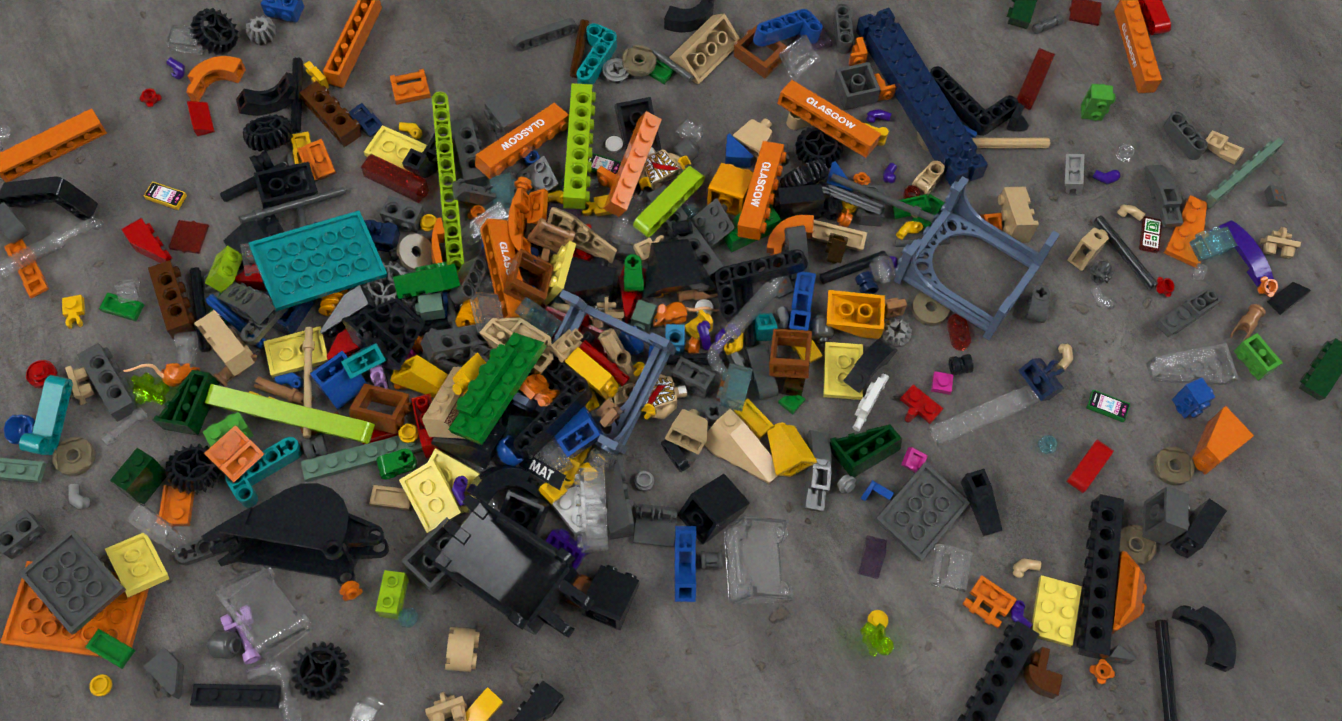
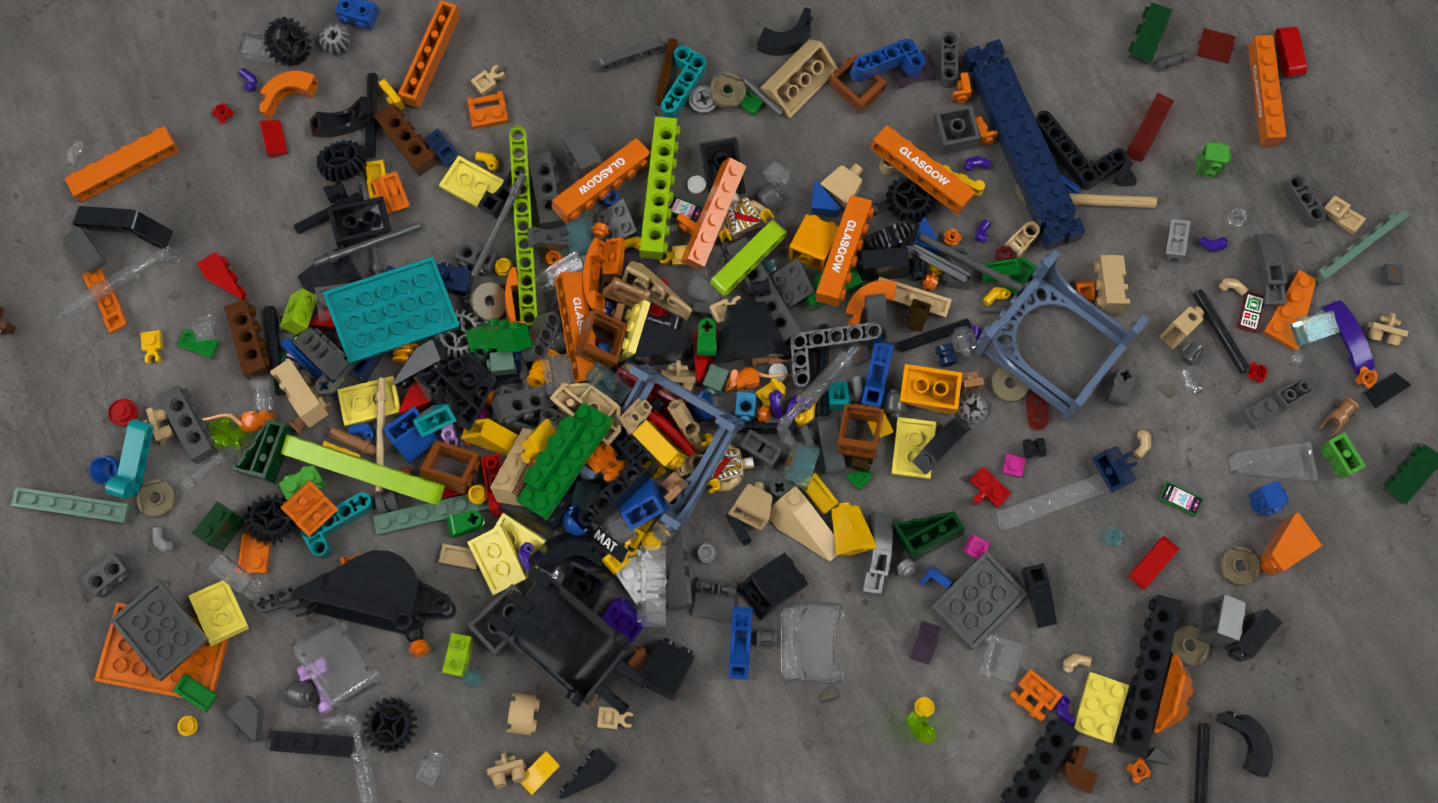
camera: 10 degrees right, 10 degrees up
(165, 195) = (239, 224): tile -> none
(188, 236) = (263, 270): clear red piece -> none
(395, 178) = (467, 214): clear red brick -> none
(407, 62) = (486, 81): none -> tan plate
(437, 150) = (514, 192): none -> dark grey bar
(554, 650) = (610, 718): none -> tan plate
(797, 52) = (894, 89): clear plate -> none
(869, 400) = (938, 478): white plate -> none

